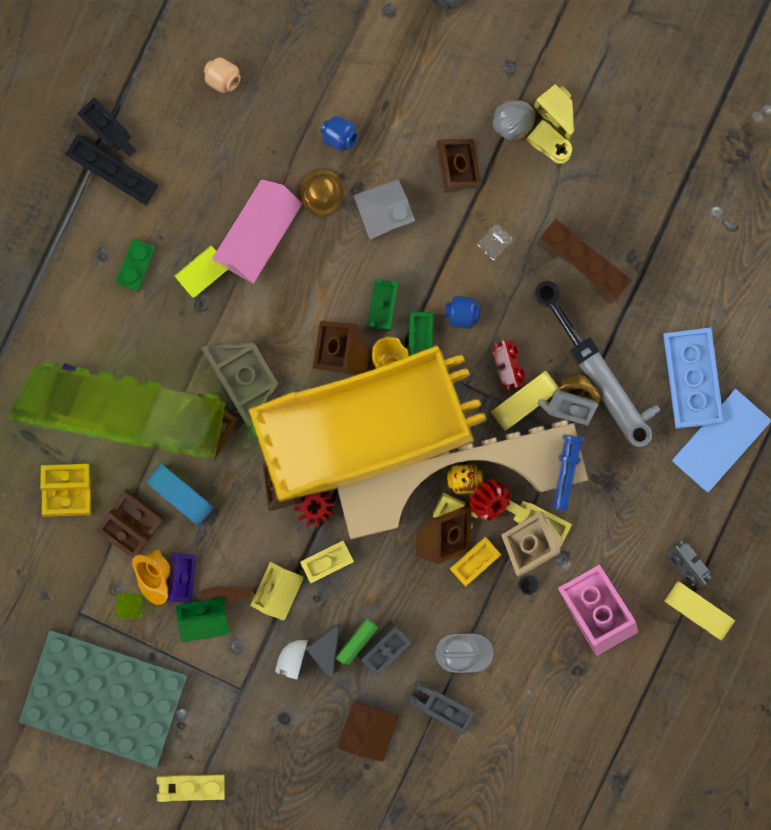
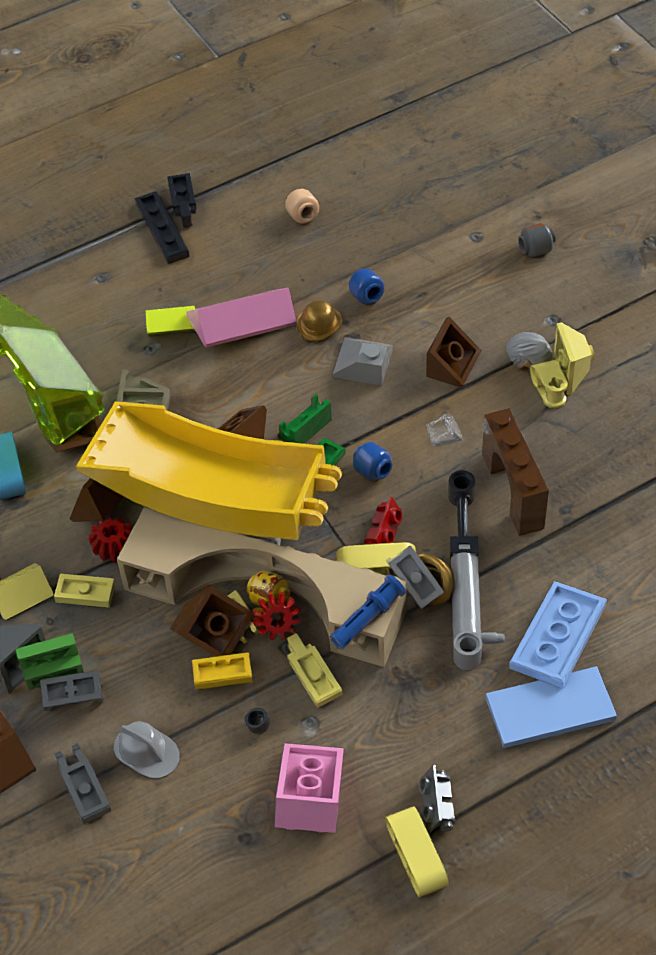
camera: 35 degrees right, 35 degrees down
(135, 265) = (122, 294): green plate -> none
(531, 543) = (288, 678): tan slope -> none

